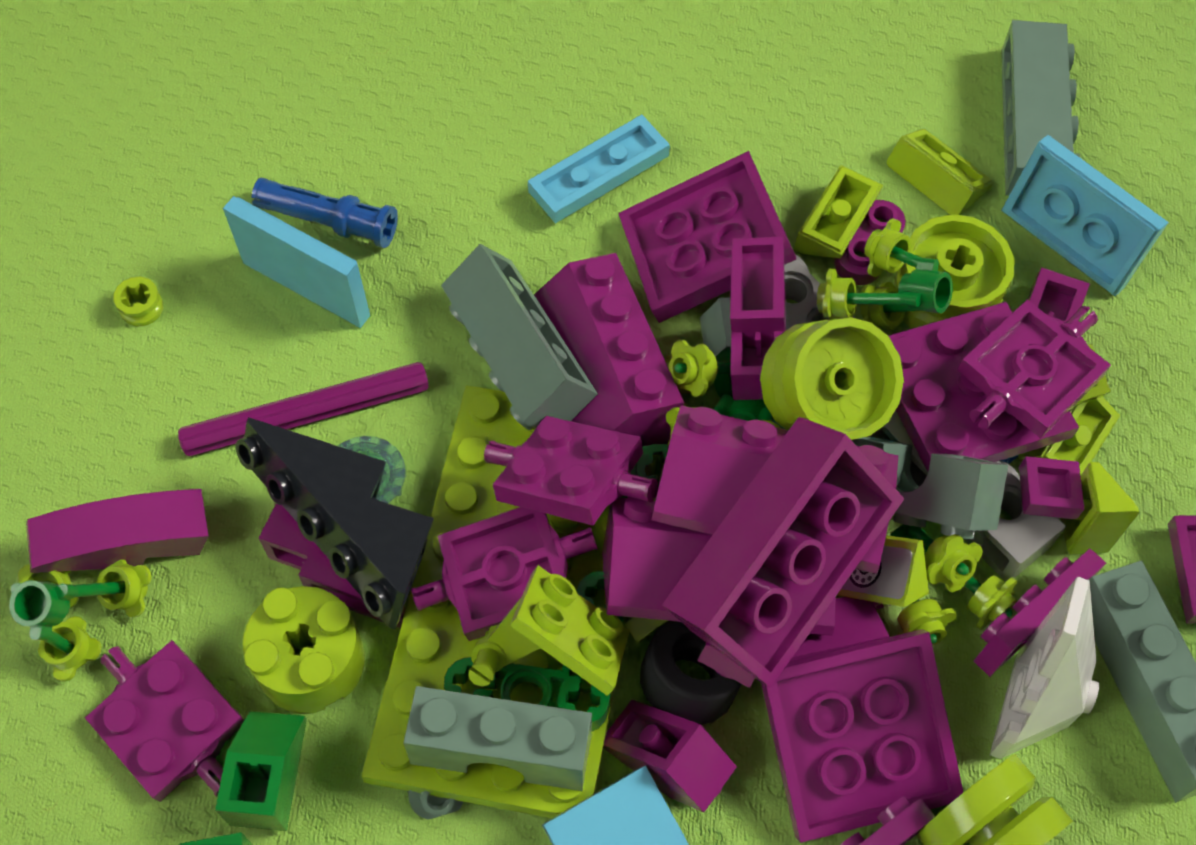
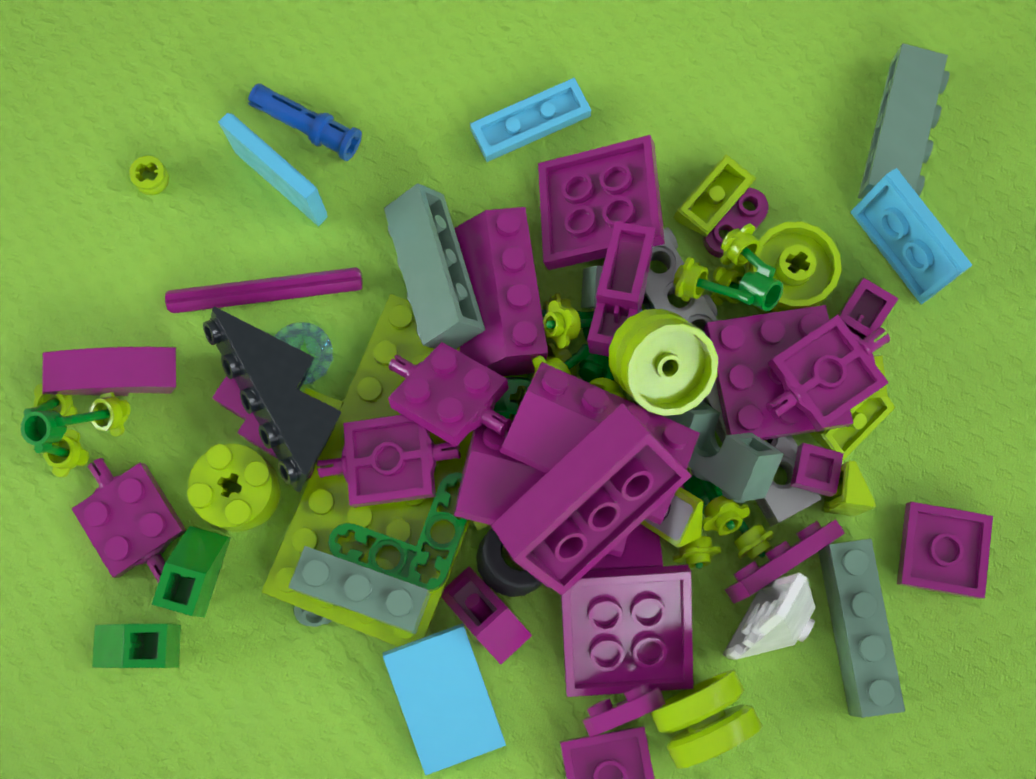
camera: 10 degrees right, 15 degrees up
(562, 625) = (416, 523): lime plate -> none
(938, 171) = (807, 168): lime slope -> none

